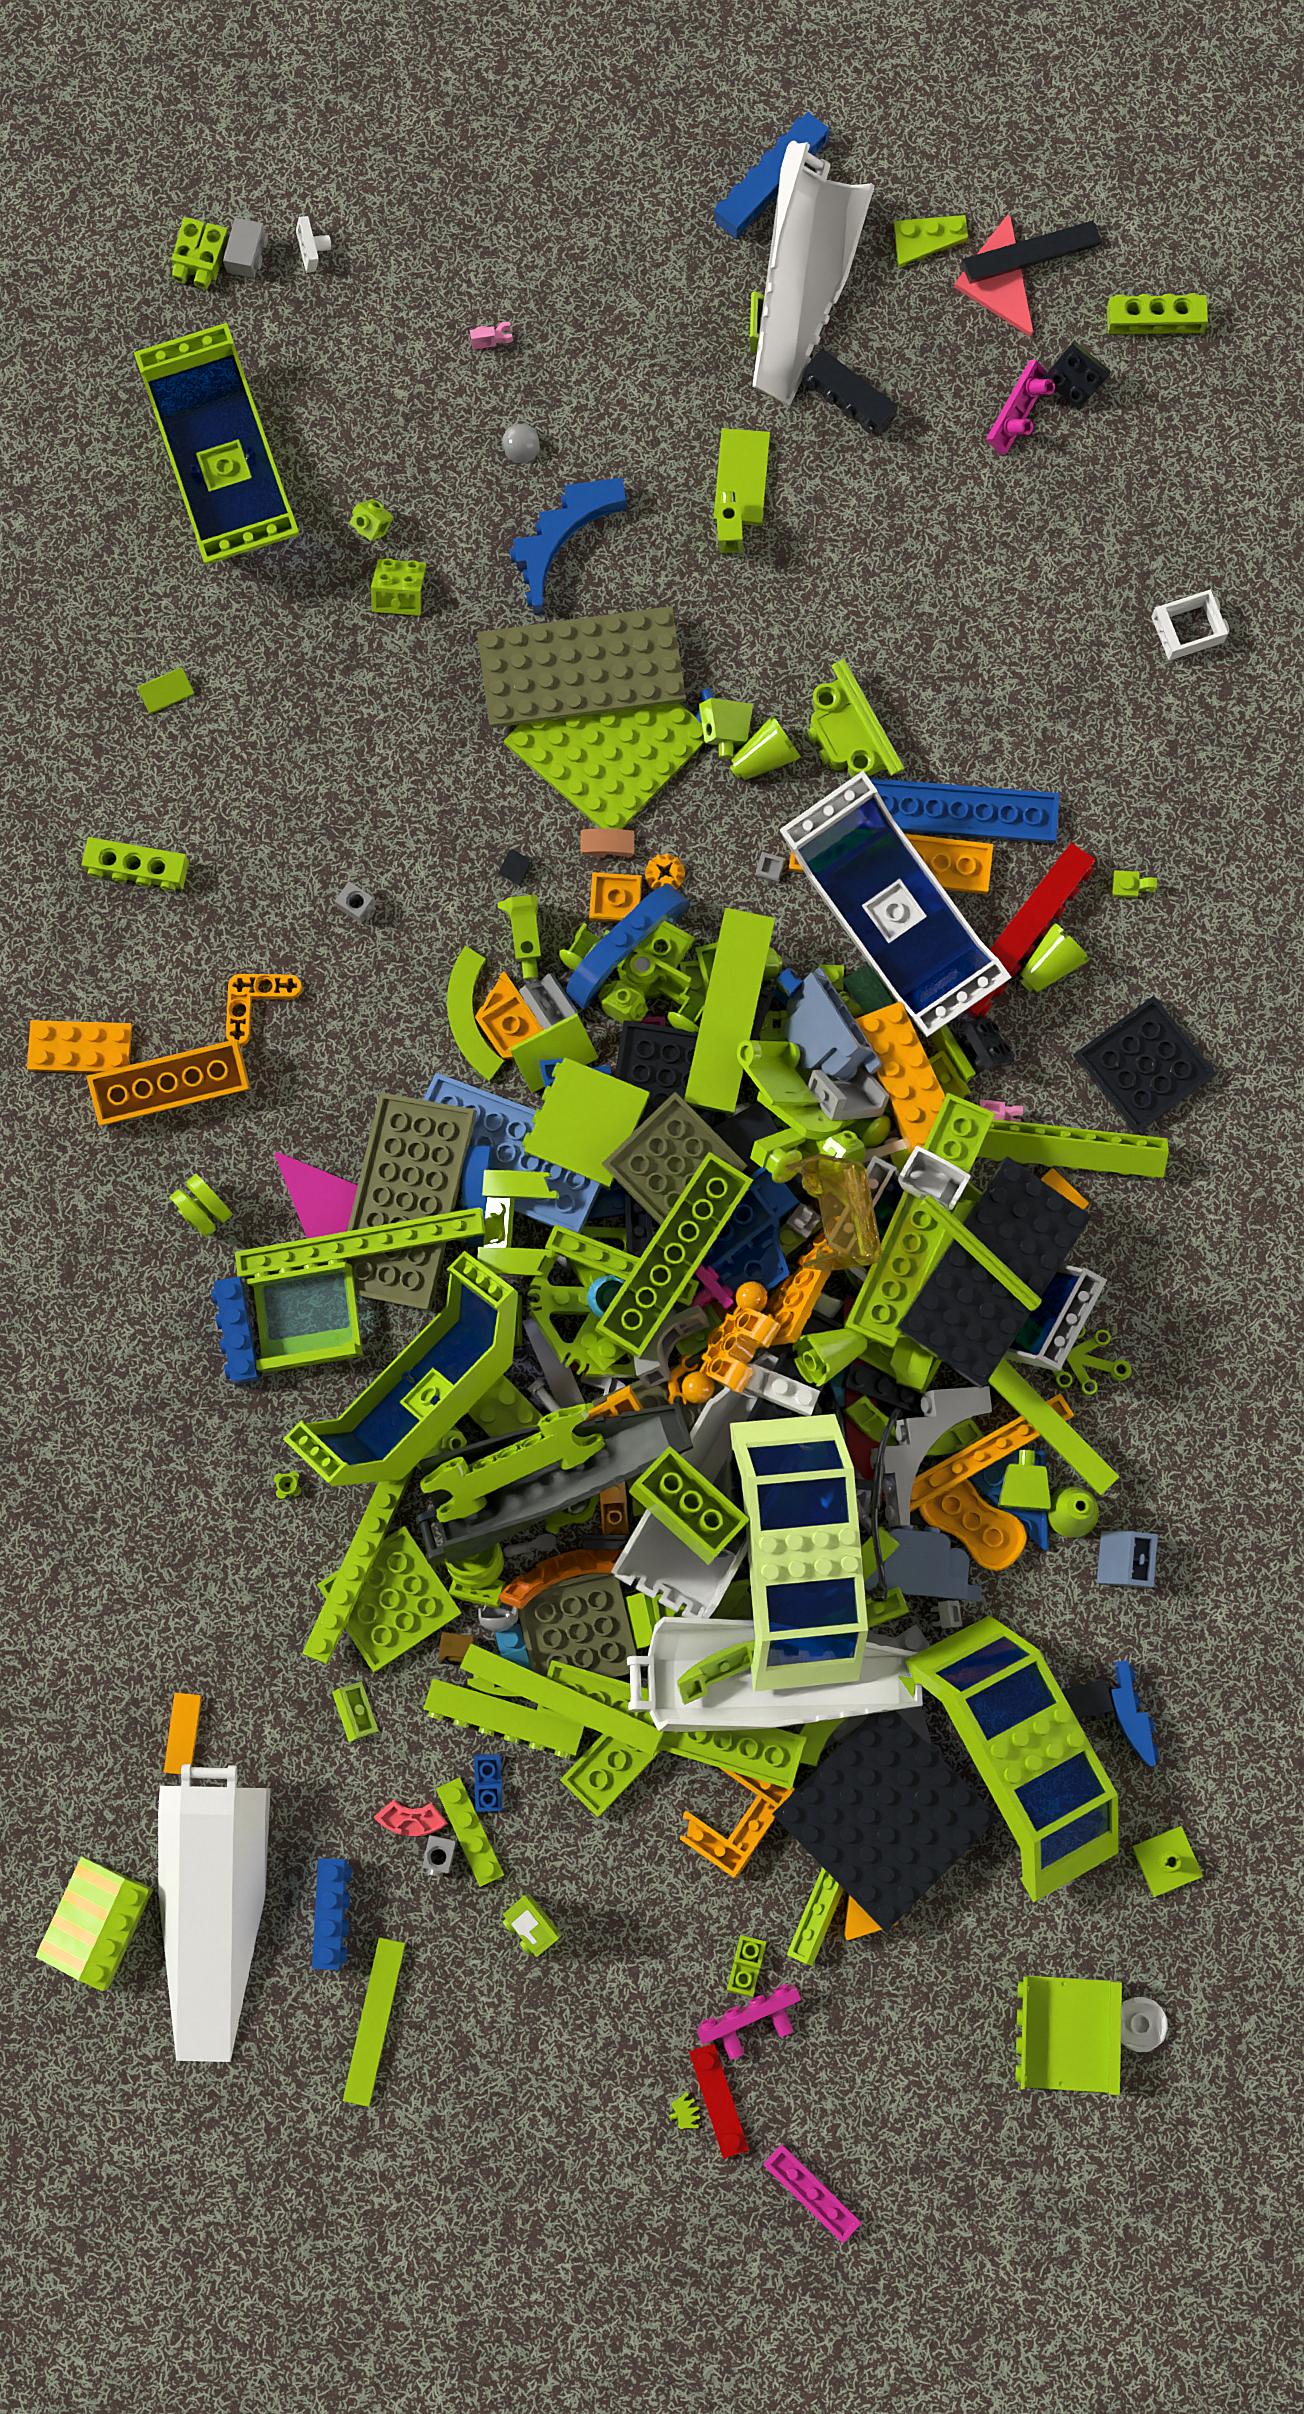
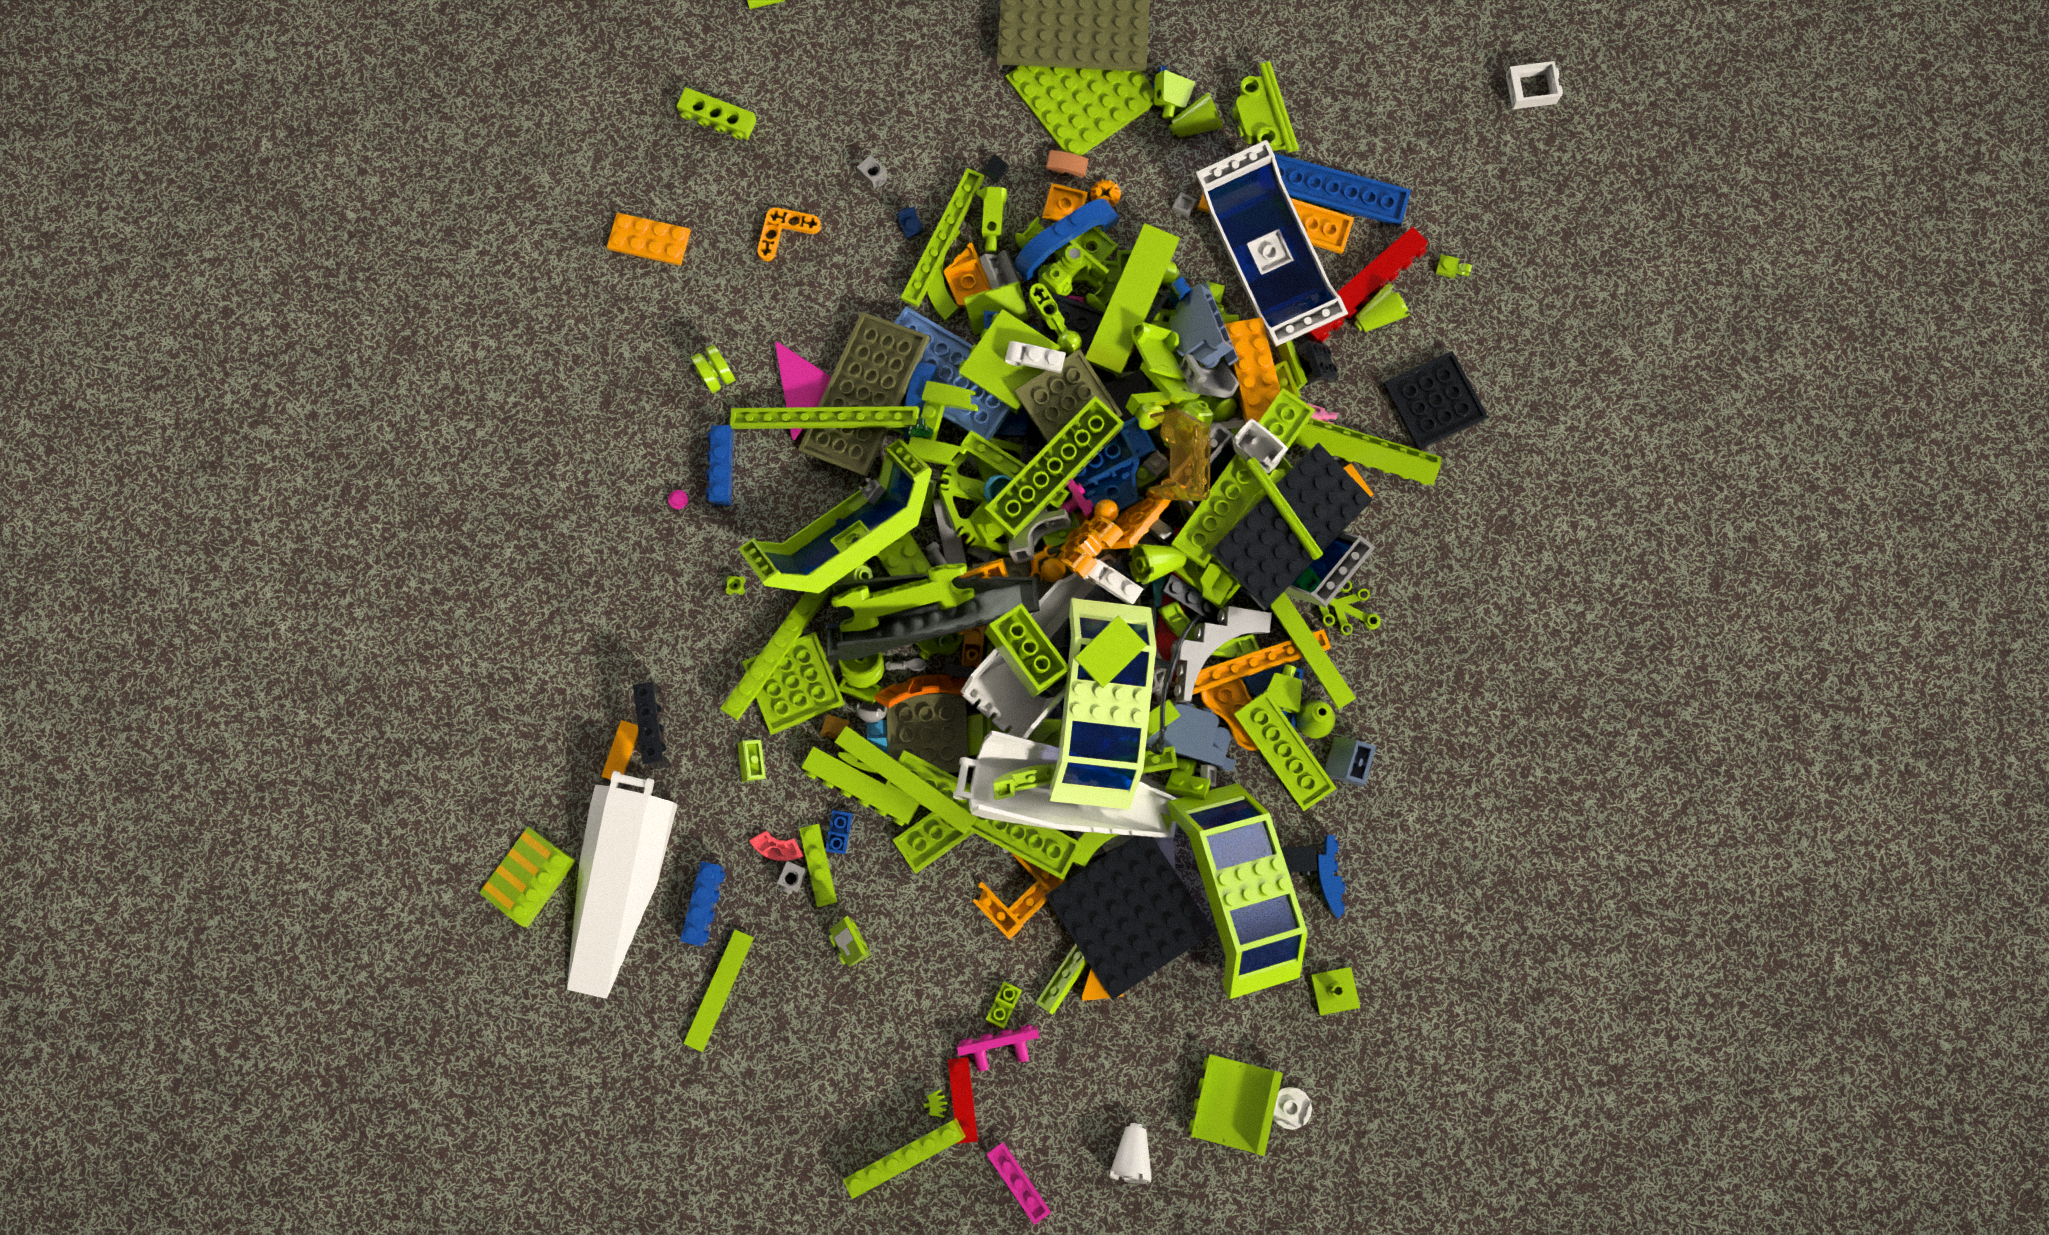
camera: 10 degrees right, 0 degrees up
(168, 1082) = (707, 275): light orange brick -> none
(189, 1386) = (678, 499): none -> dark pink plate
(214, 1694) = (648, 725): none -> black window
(306, 1316) = (774, 464): clear light blue panel -> none
(418, 960) = (909, 222): none -> dark blue bracket
(442, 1327) = (873, 490): none -> light grey tile
(465, 973) = (942, 238): none -> lime plate
(490, 1236) = (920, 429): none -> dark green plant
(619, 1113) = (1034, 356): none -> white plate
(656, 1080) = (1067, 340): none -> lime beam
(659, 2192) = (904, 1158): none -> lime brick
(796, 1487) = (1110, 651): none -> lime tile
(868, 990) = (1238, 305): clear green panel -> none
(922, 1632) = (1184, 783): none -> lime plate
(951, 2129) = (1132, 1156): none -> white cone
(1042, 1562) = (1285, 750): none -> lime plate

